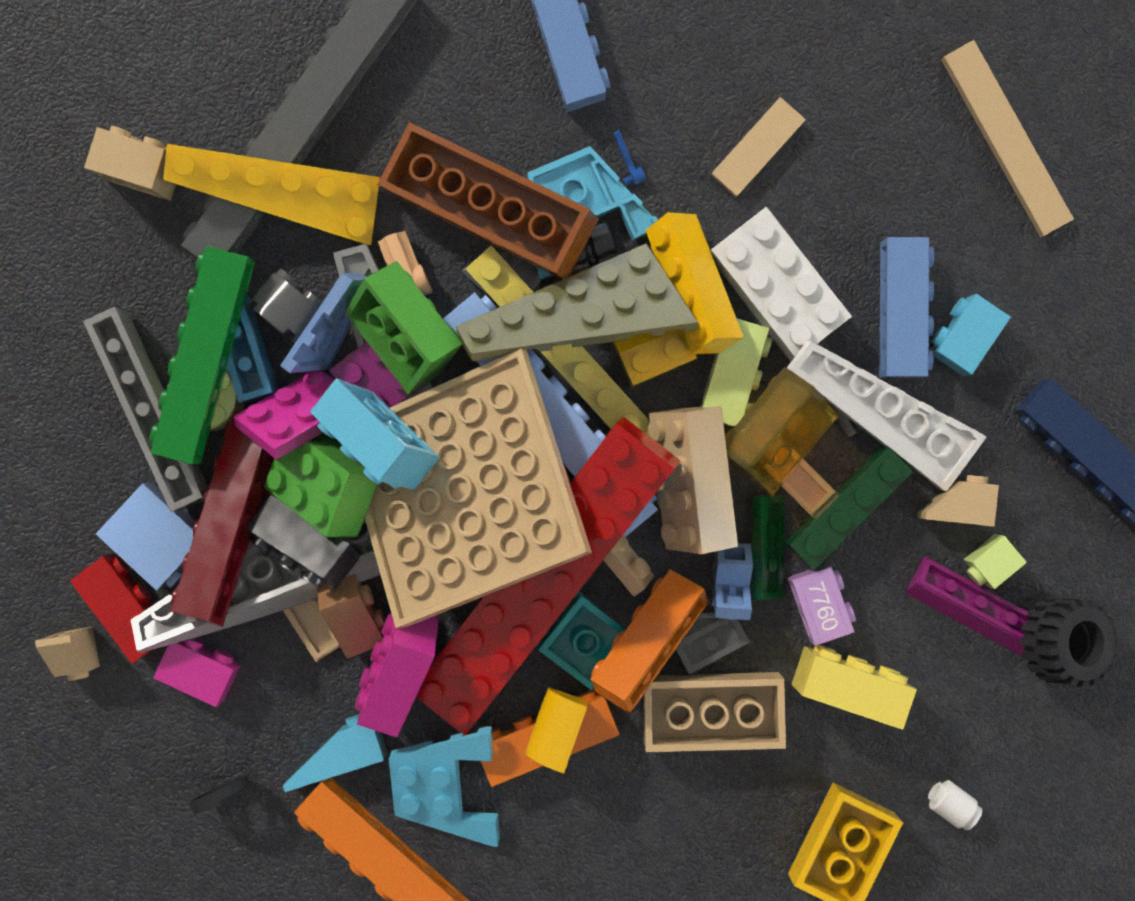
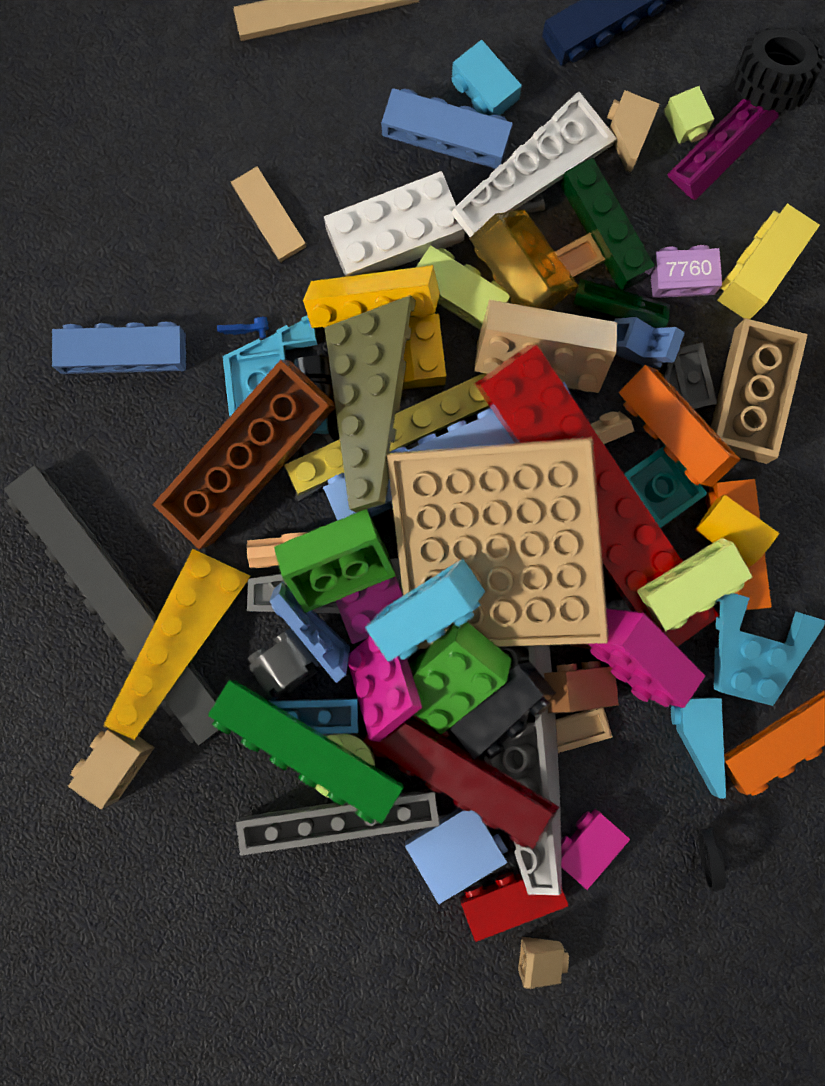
camera: 70 degrees left, 5 degrees down
(483, 701) = (695, 584): none -> yellowish green brick

